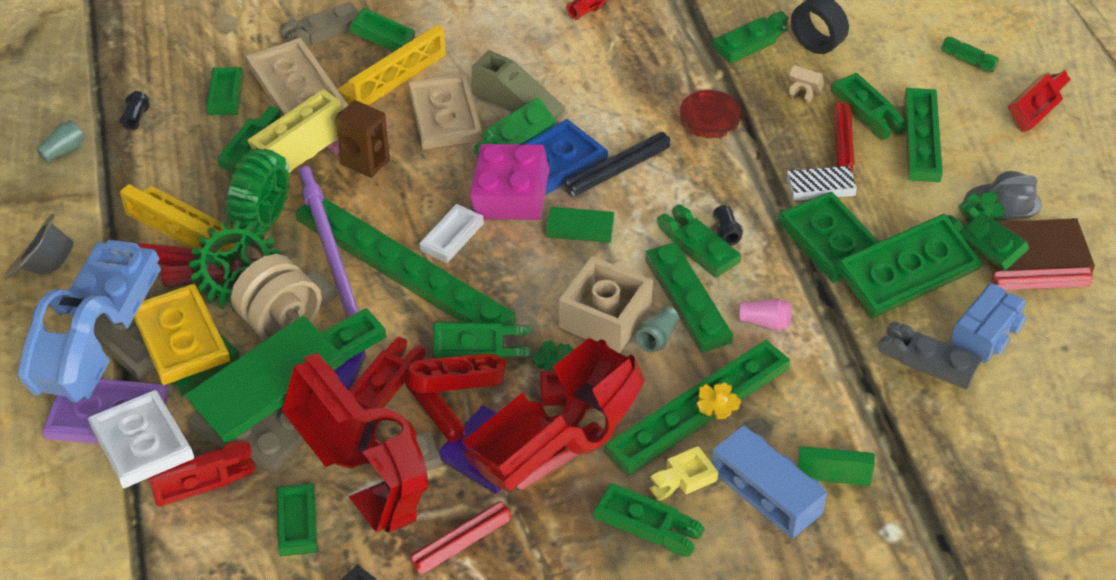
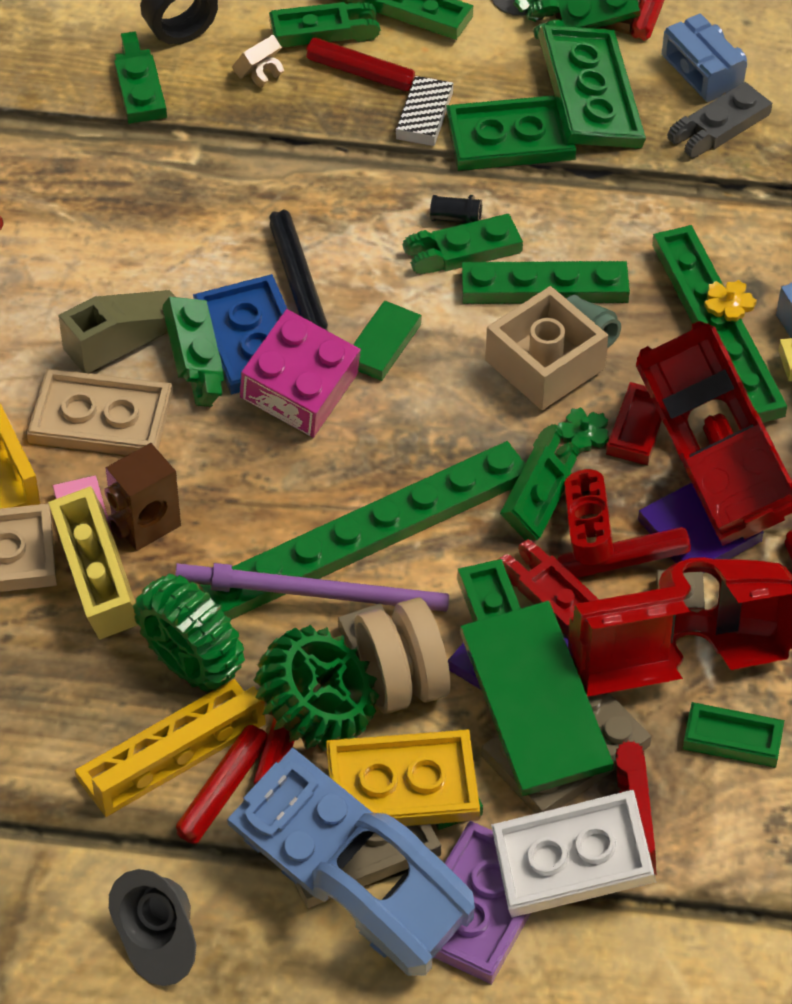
camera: 70 degrees left, 5 degrees up
(239, 145) = (55, 632): green hinge -> none
(451, 233) = (333, 467): white tile -> none
(710, 113) = (255, 163): clear red tile -> none
(770, 313) = (611, 220): bright pink cone -> none

